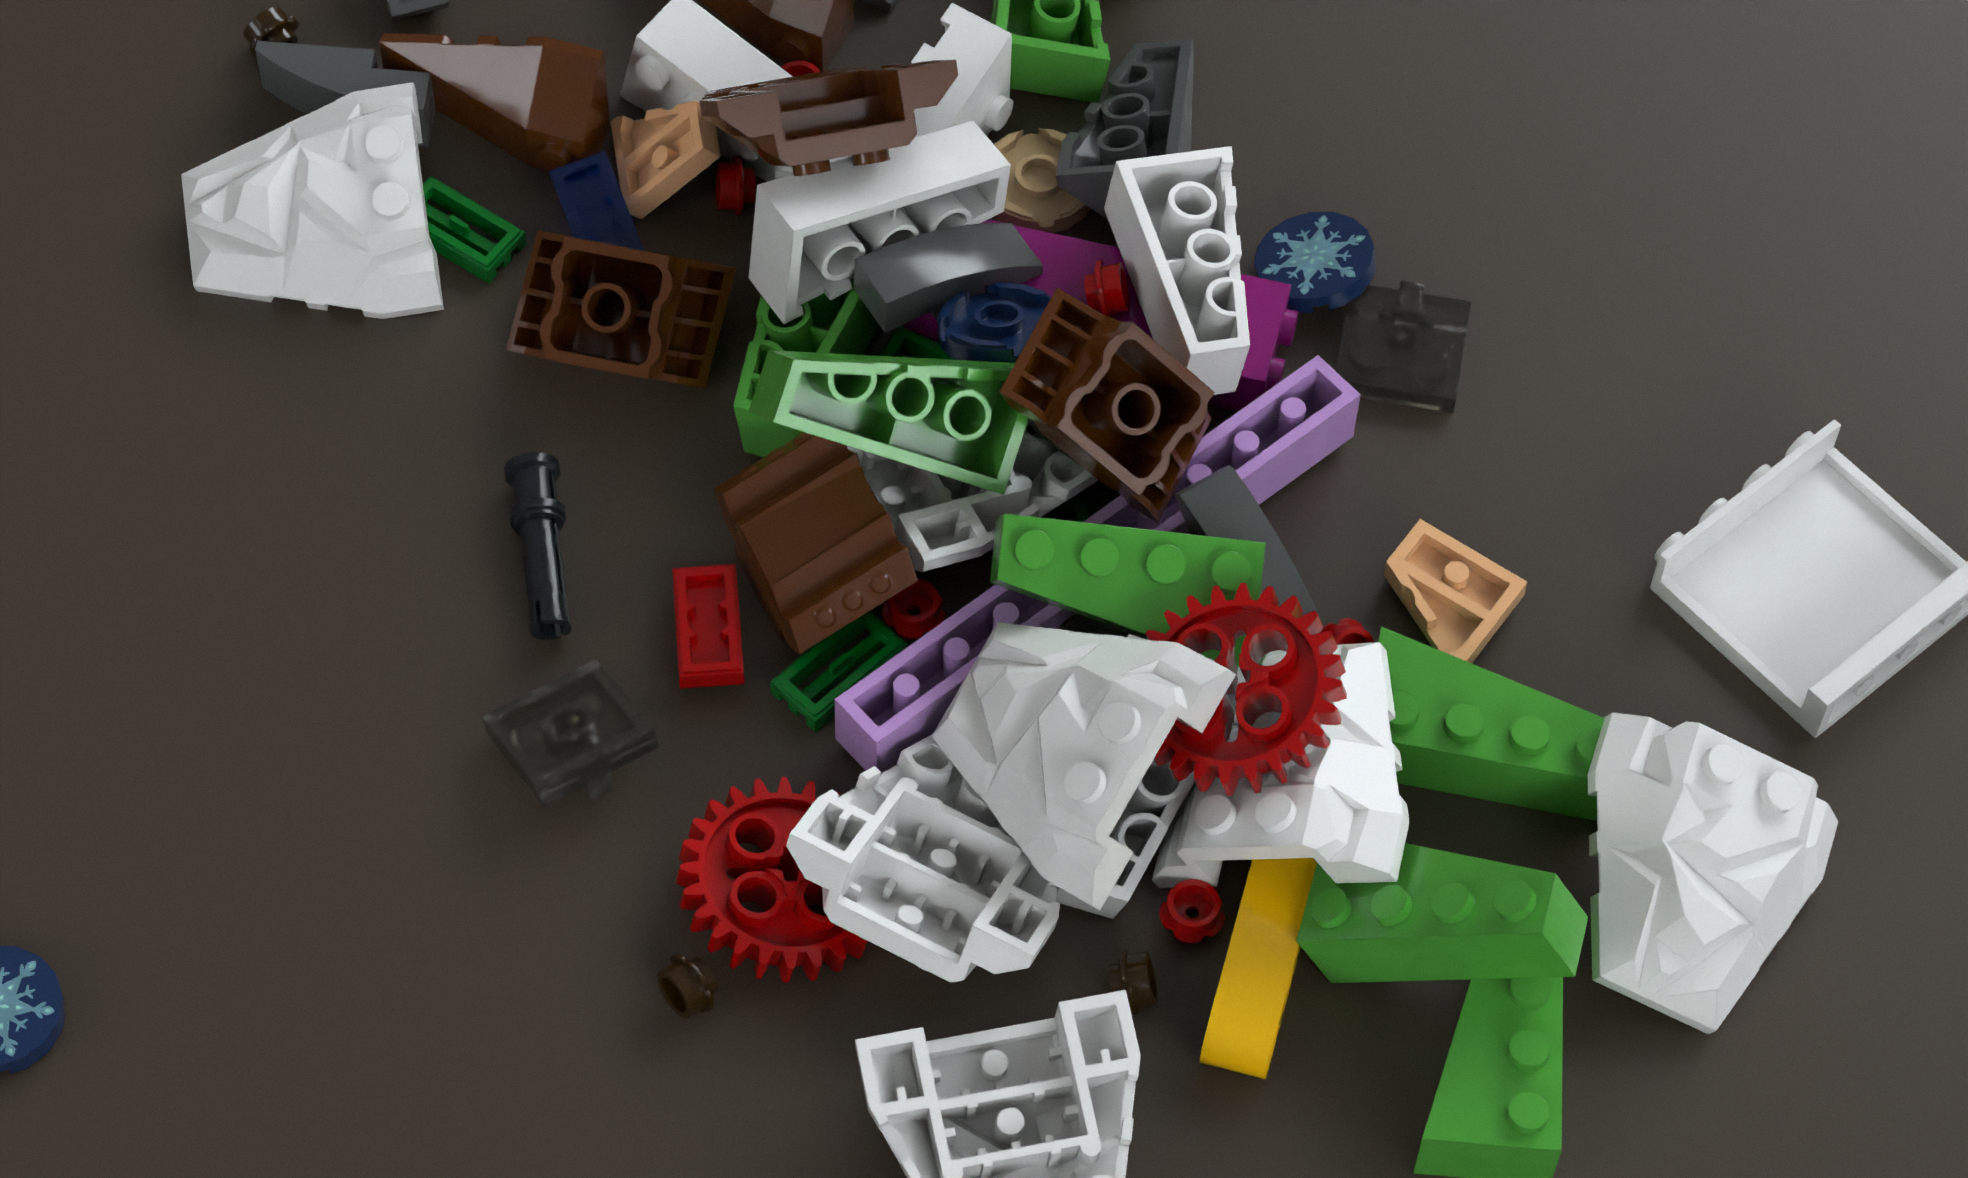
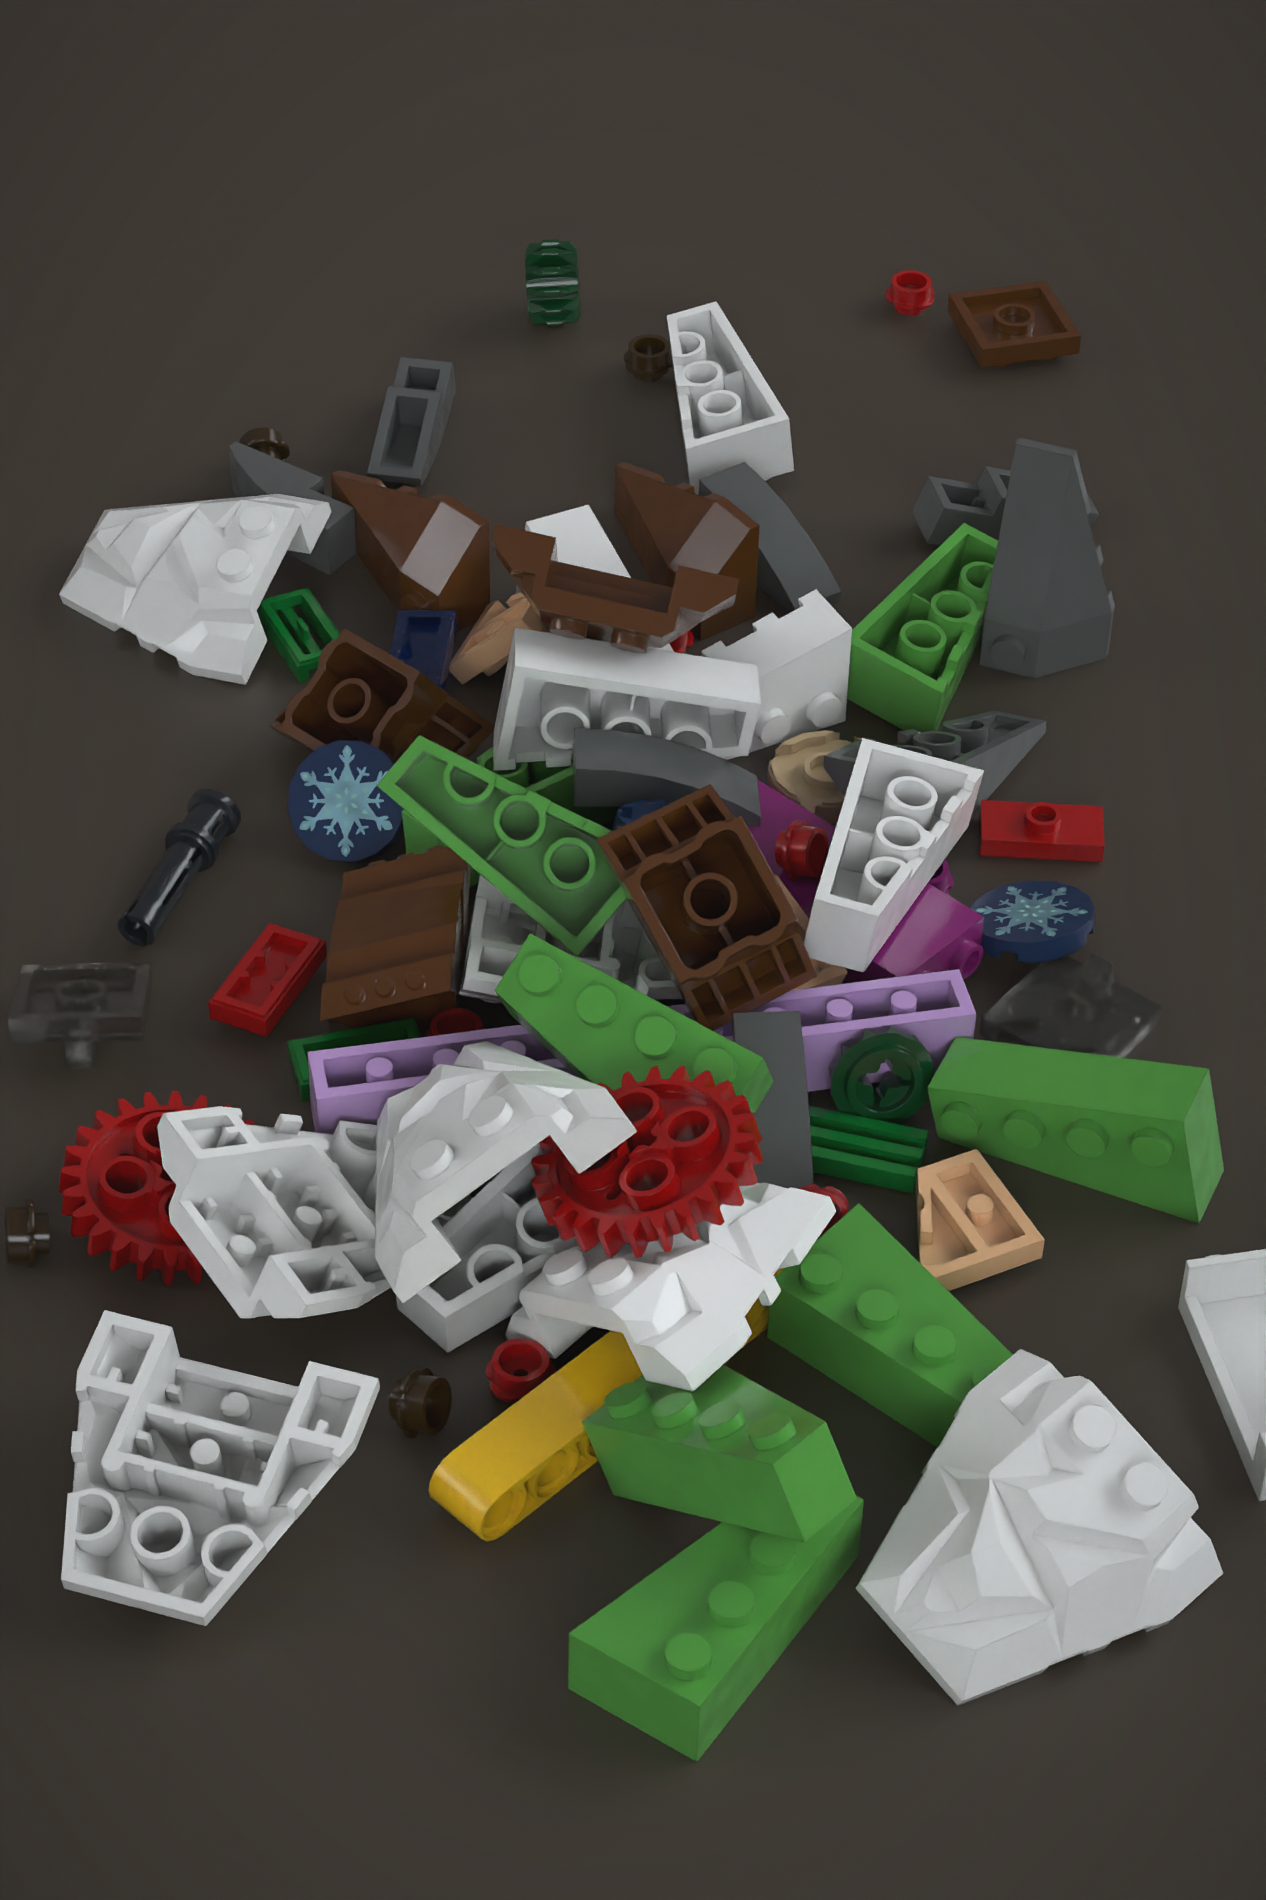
camera: 30 degrees right, 15 degrees down
(659, 408) = (340, 806): none -> dark blue tile
(1271, 154) = (1041, 831): none -> red plate
(1305, 487) = (896, 1096): none -> dark green gear
(1329, 543) = (866, 1138): none -> green tile
(1486, 450) = (1085, 1118): none -> bright green wedge

